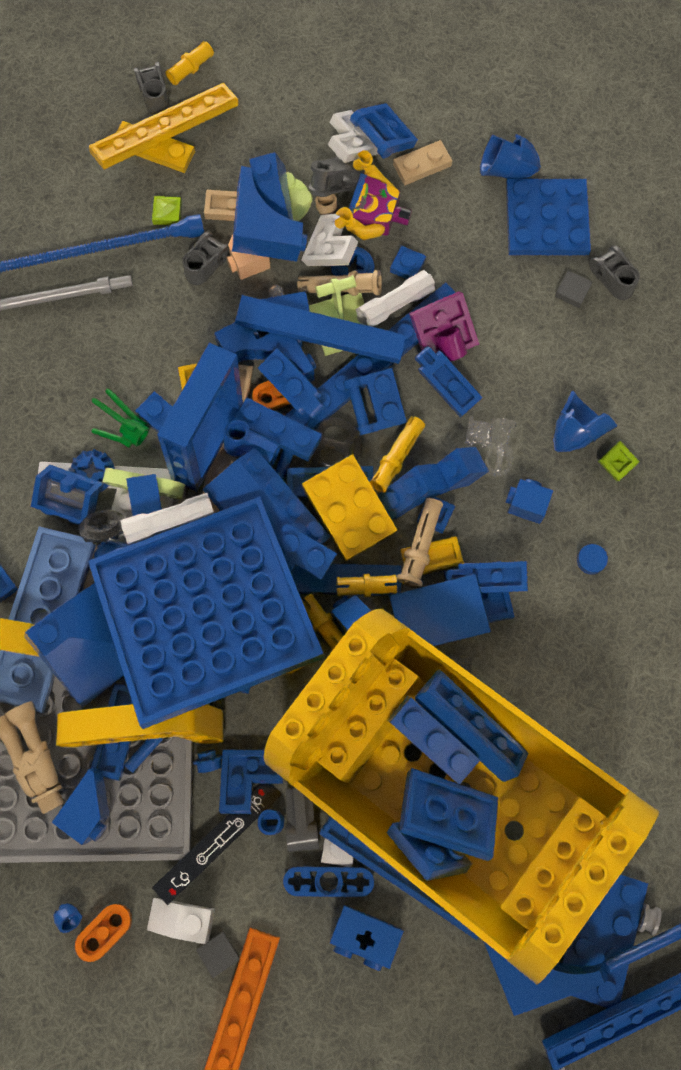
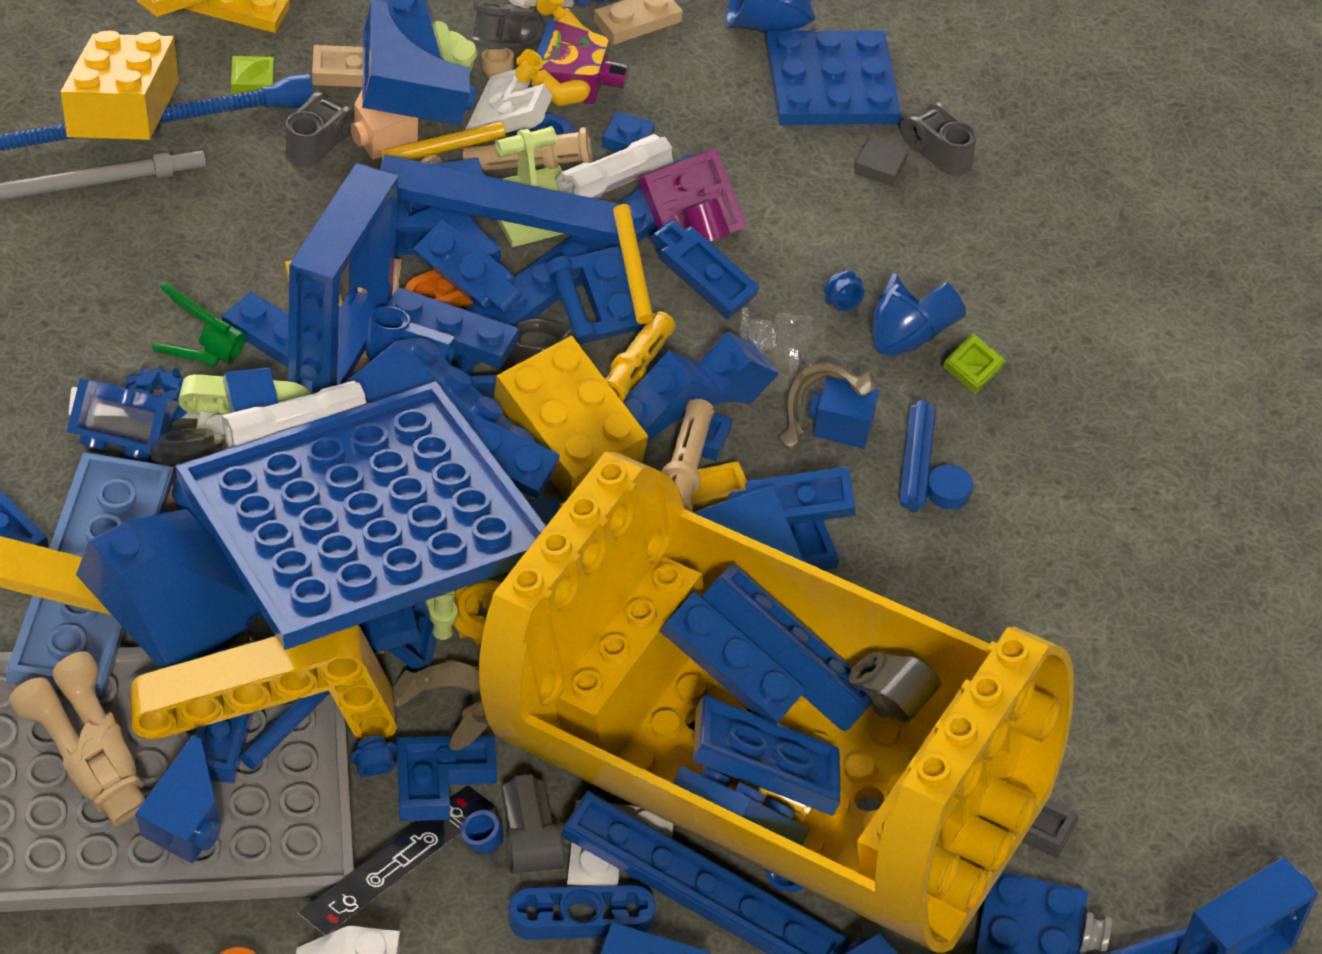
camera: 10 degrees left, 25 degrees down
(76, 228) = (120, 86): none -> yellow brick
(260, 697) = (449, 675): none -> dark tan helmet
(285, 273) = (447, 142): none -> yellow bar
(400, 382) = (633, 264): none -> yellow bar
(536, 775) = (895, 684): none -> dark grey piece
(538, 399) = (844, 290): none -> blue plate
(542, 491) = (861, 384): none -> dark tan helmet
(573, 534) = (917, 456): none -> blue axle

